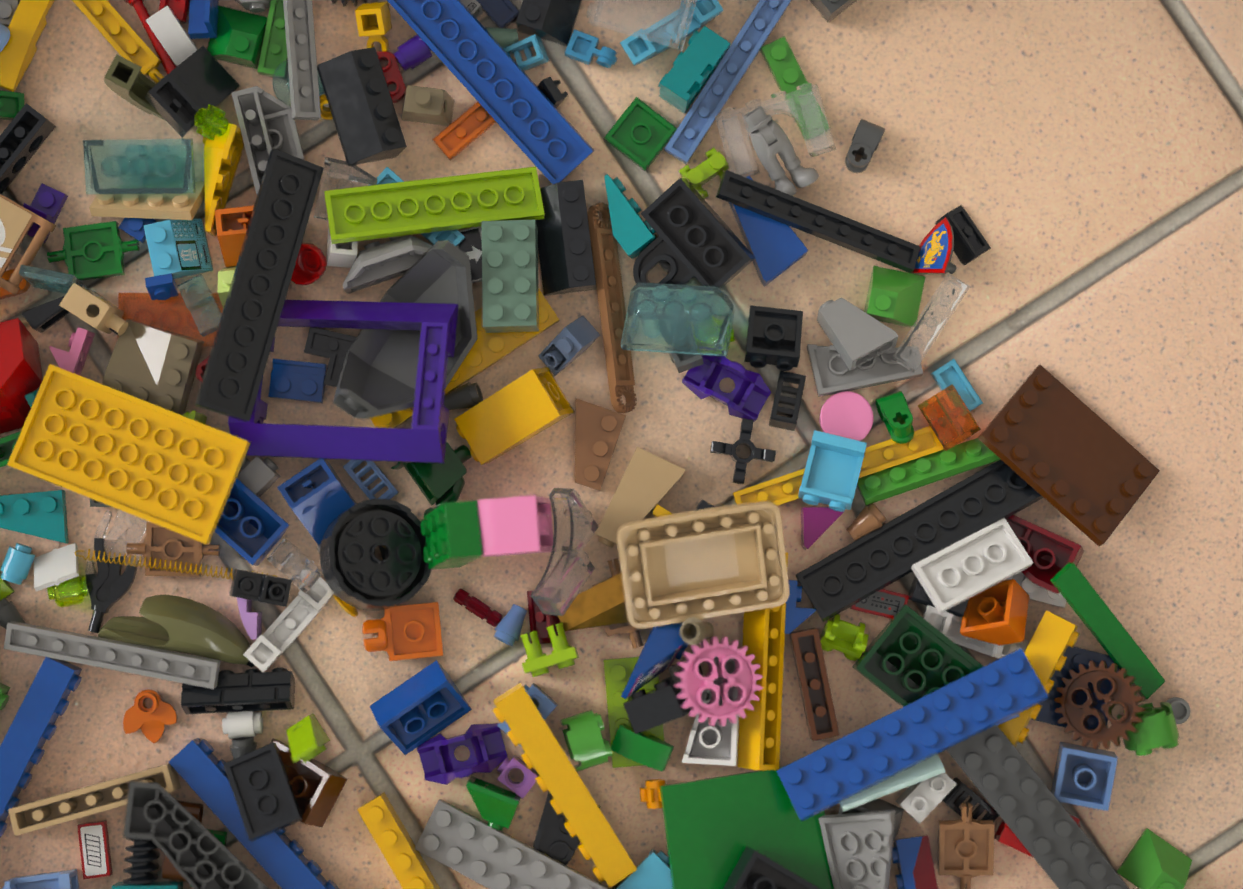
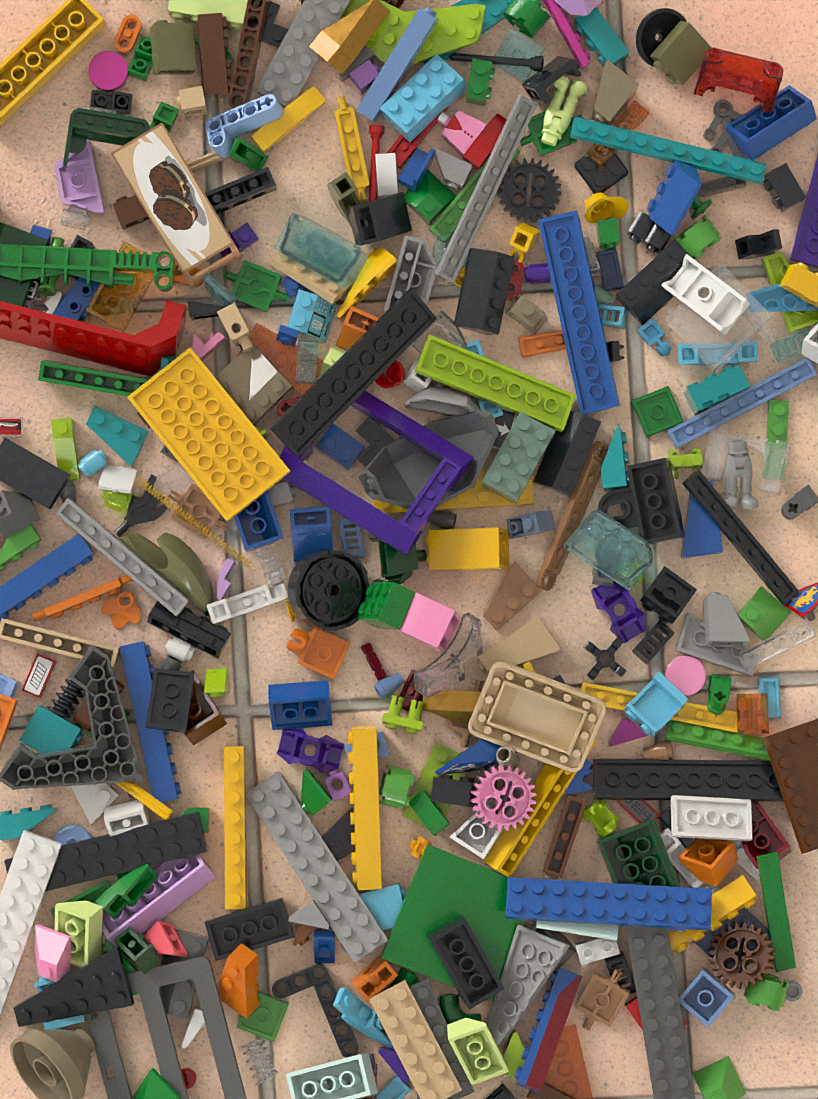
camera: 35 degrees right, 0 degrees up
(89, 738) = (75, 603): none -> orange plate
(211, 122) = (381, 248): clear neon green gear -> none
(260, 587) = (242, 568): black slope -> none

